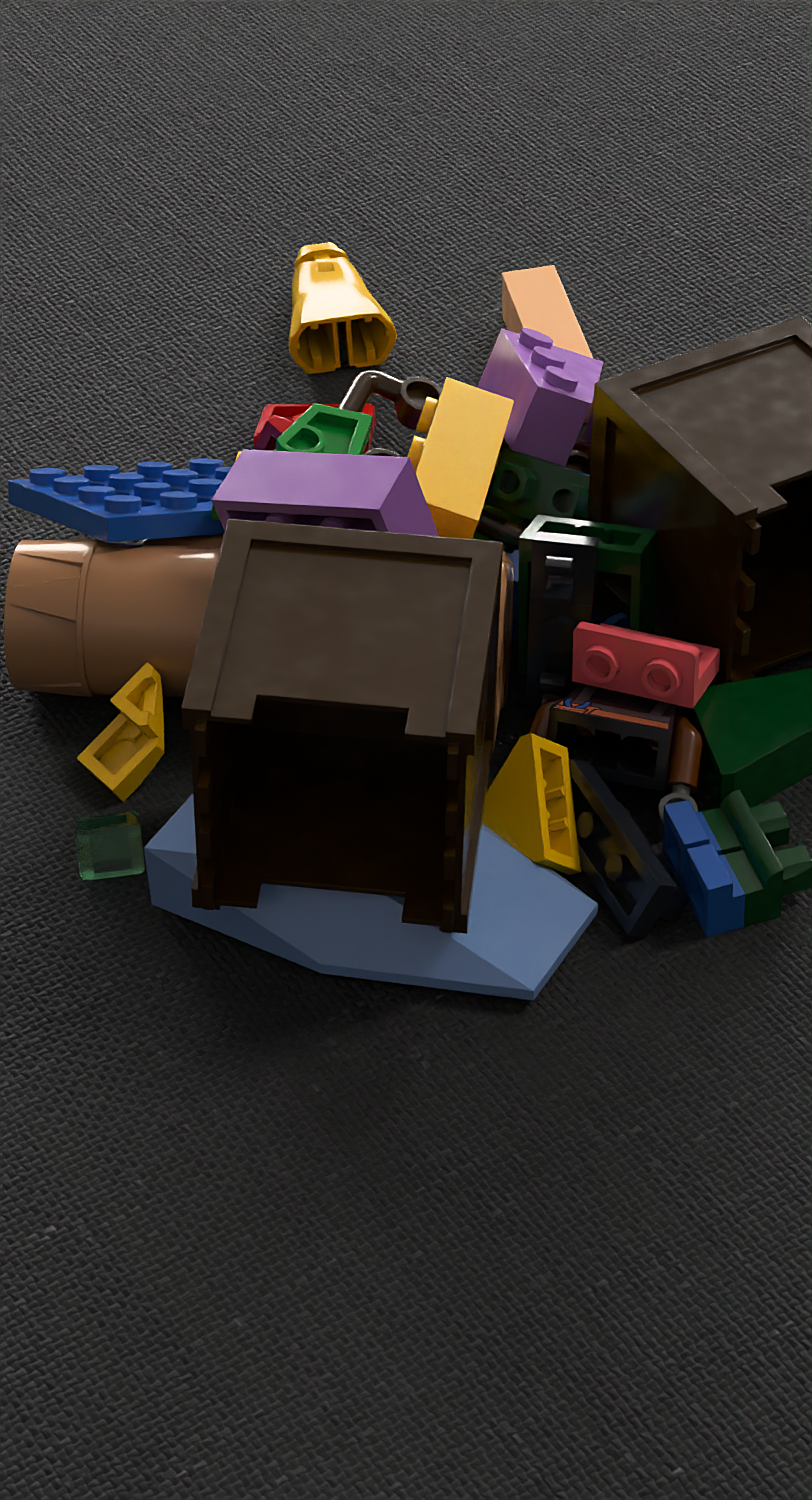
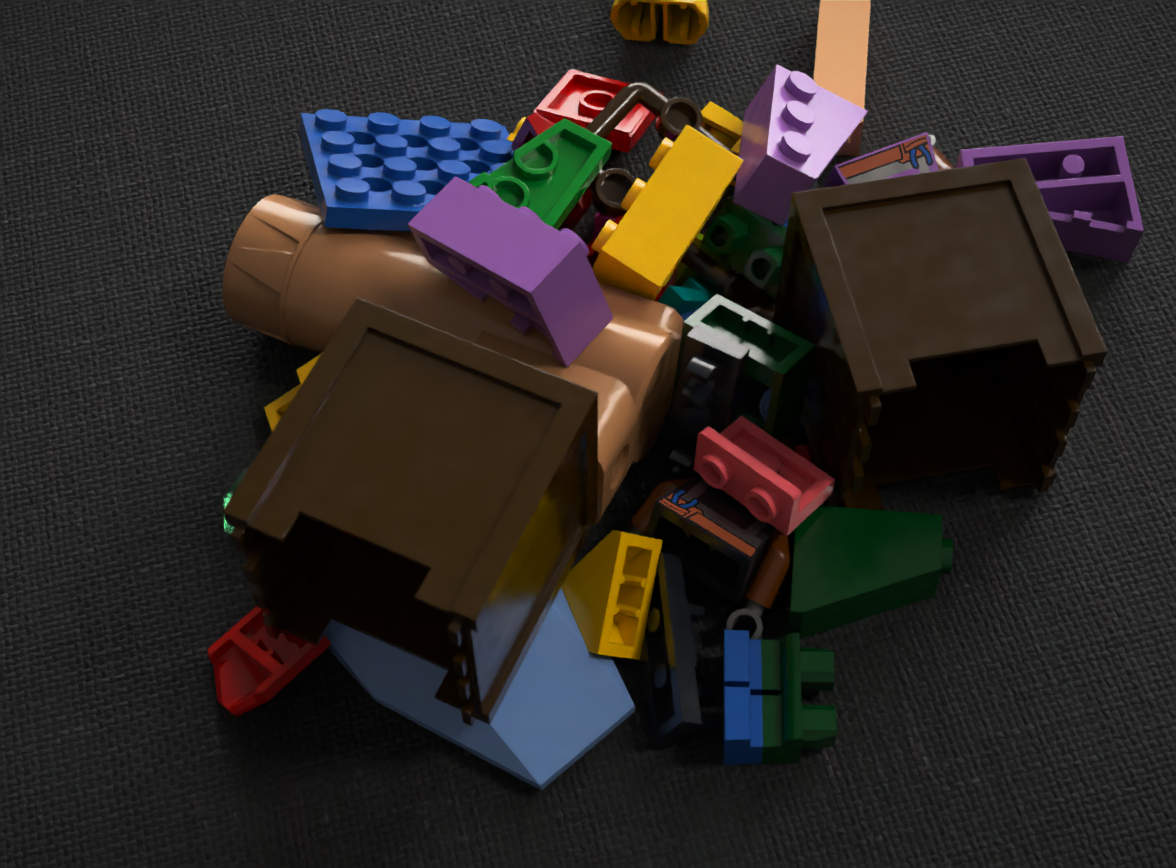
camera: 20 degrees right, 15 degrees up
(185, 959) = (256, 666): none -> red slope

